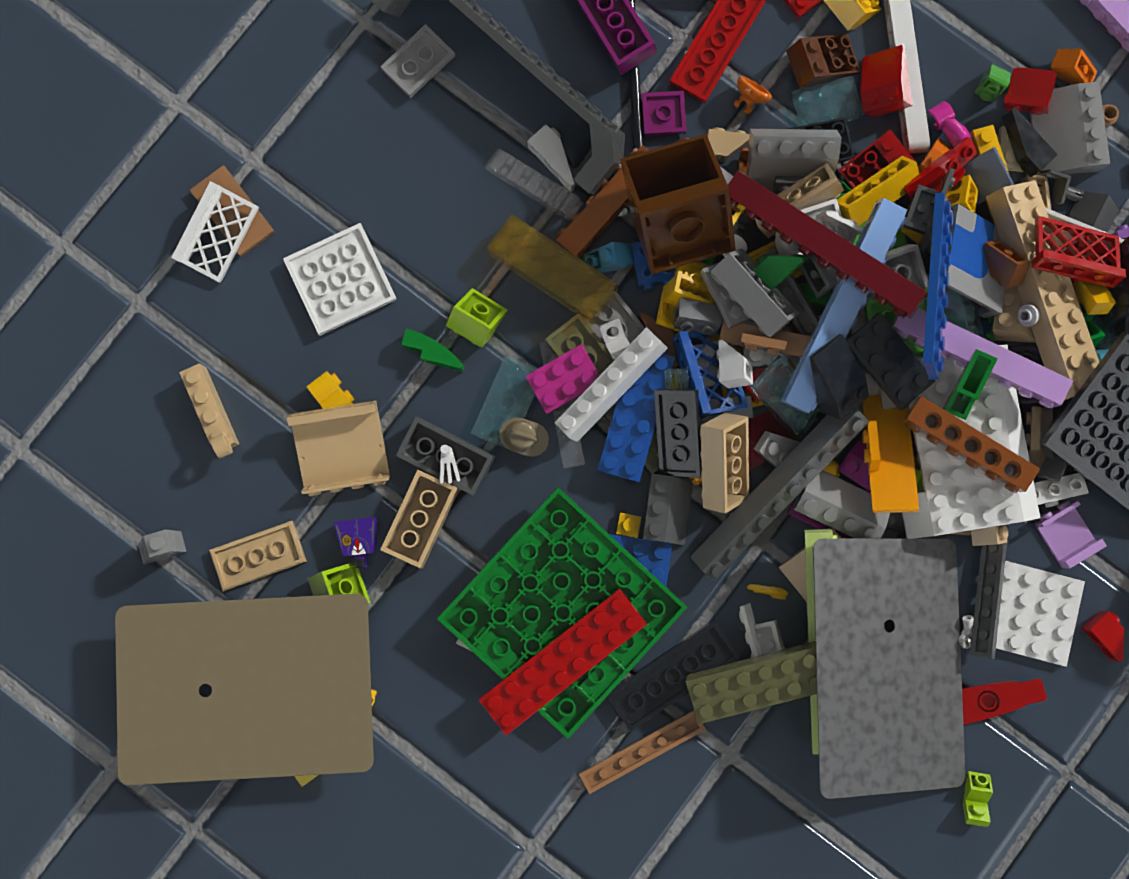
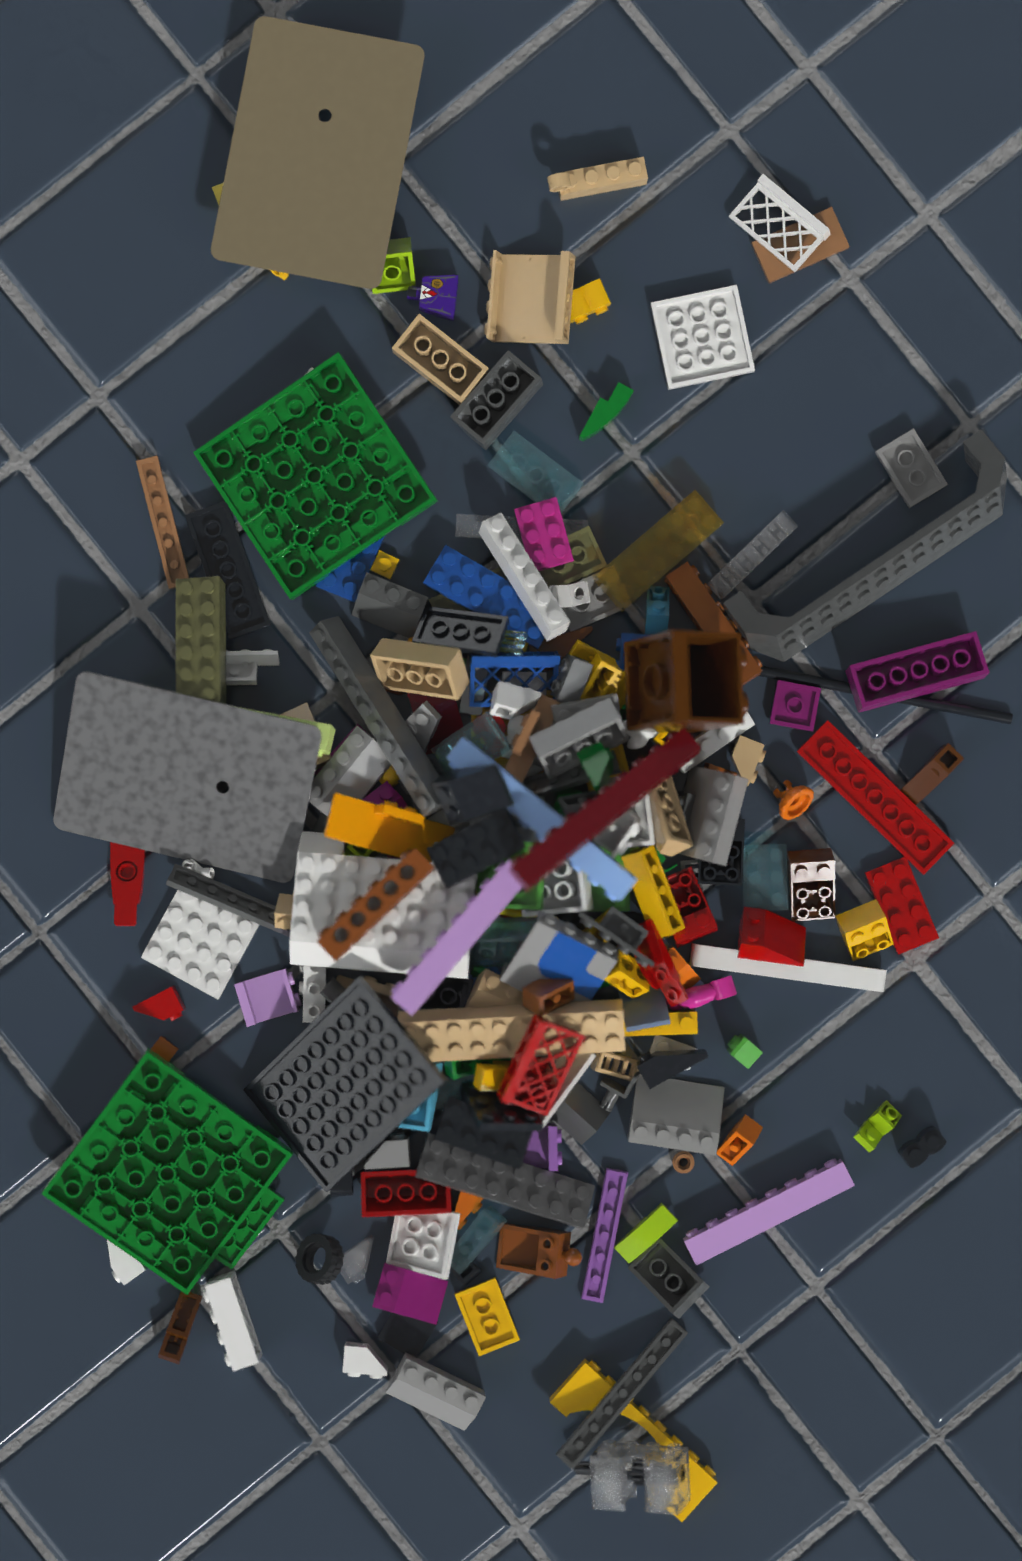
camera: 110 degrees right, 5 degrees up
(161, 545) = (476, 102): light grey slope -> none
(257, 556) = (445, 194): tan tile -> none
(448, 457) = (492, 398): white piece -> none
(476, 317) = (629, 464): lime slope -> none
(524, 437) = (497, 482): dark tan piece -> none
(549, 150) = (780, 581): white slope -> none
(562, 661) = (267, 464): red plate -> none
(774, 592) = (284, 691): yellow piece -> none
(938, 280) = (534, 905): blue plate -> none
(970, 384) = (432, 916): green slope -> none
(976, 796) = (37, 834): lime slope -> none
(1030, 90) = (725, 1085): red bracket -> none
(1033, 315) = (490, 1003): white plate -> none

